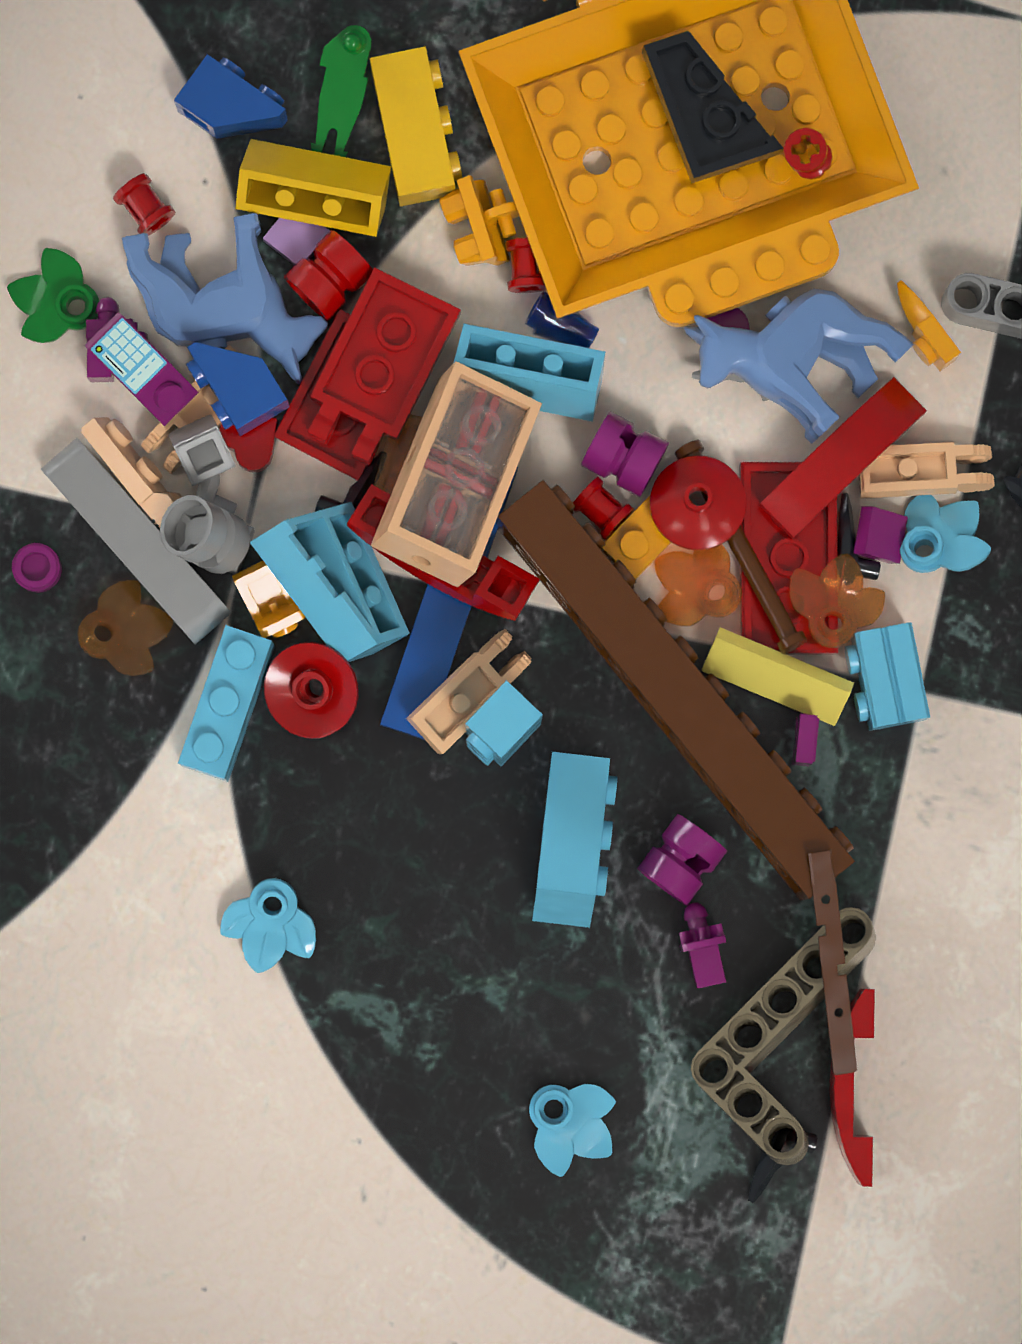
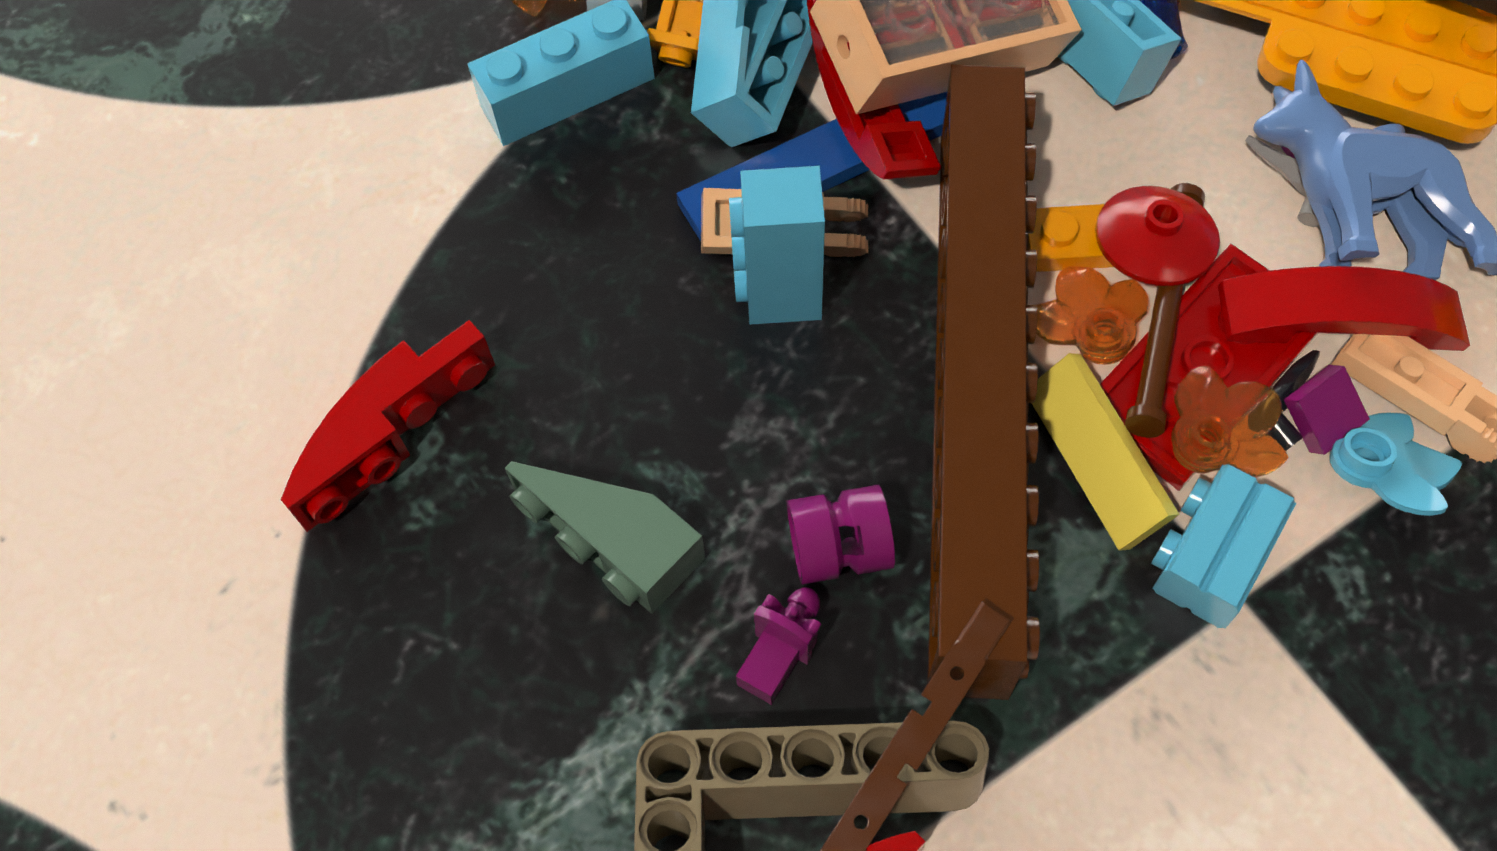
camera: 50 degrees right, 20 degrees down
(268, 932) = (402, 280): medium azure plate -> none
(293, 702) = (644, 115): red dish -> none
(358, 1047) = (362, 431): none -> red slope
(566, 965) = (620, 529): none -> sand green slope
(573, 839) = (745, 423): medium azure wedge -> none
(576, 1130) = (480, 709): medium azure plate -> none
(602, 508) = (1057, 176): red bush -> none
(624, 454) = (1120, 144): magenta wheel -> none
(805, 740) = (1075, 531): magenta tile -> none

